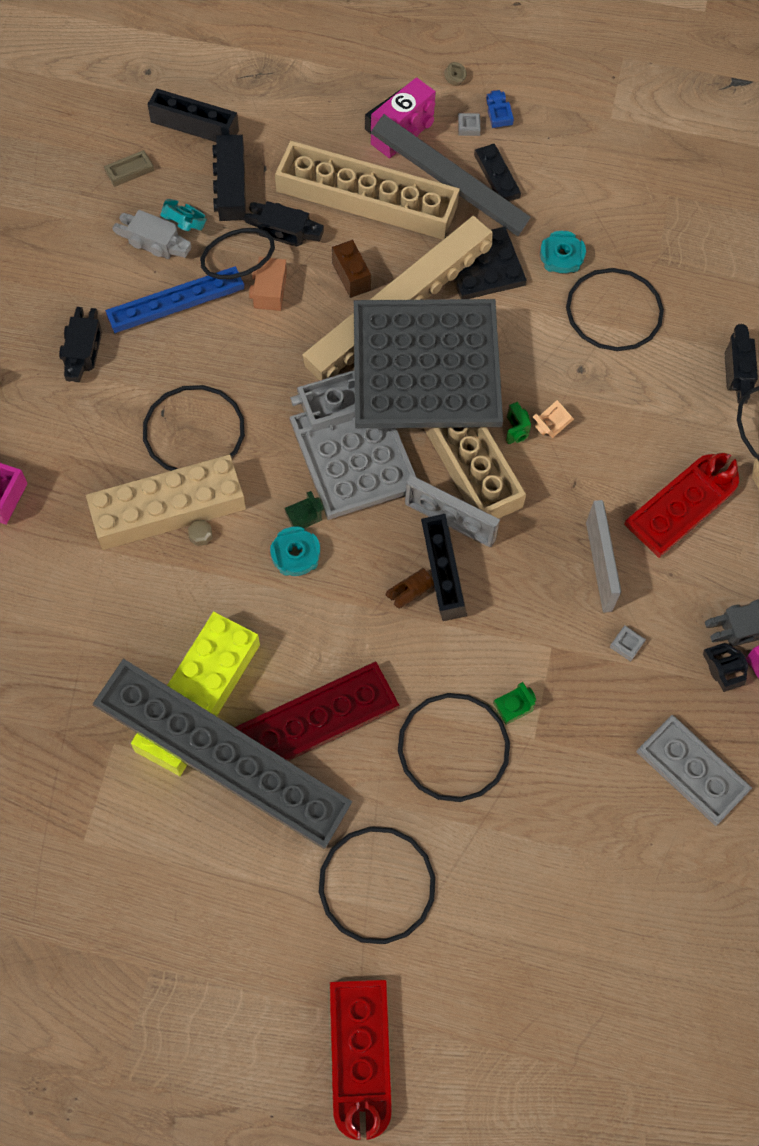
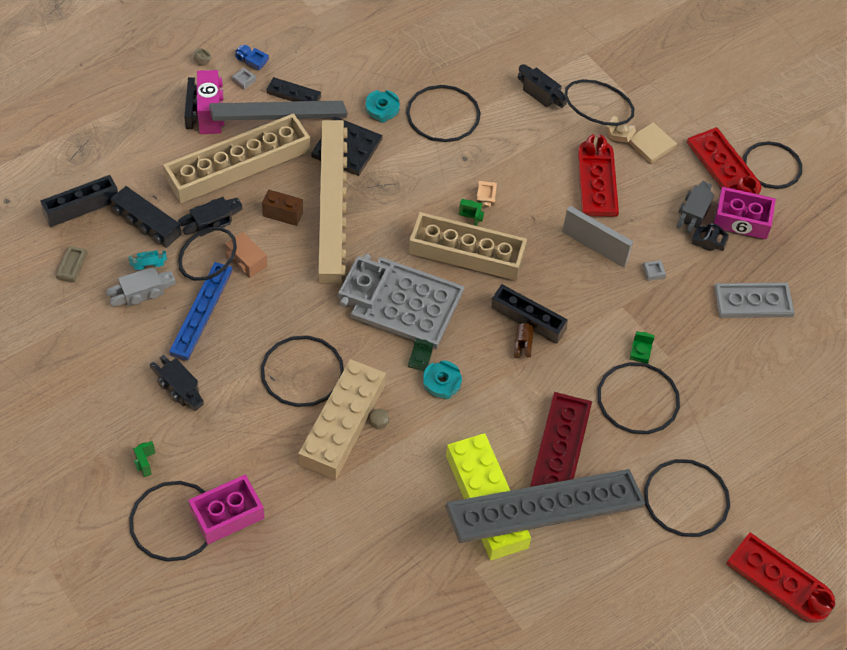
camera: 50 degrees left, 10 degrees down
(426, 364) = (396, 217): dark grey plate -> none
(459, 514) = (485, 285): light grey tile -> none

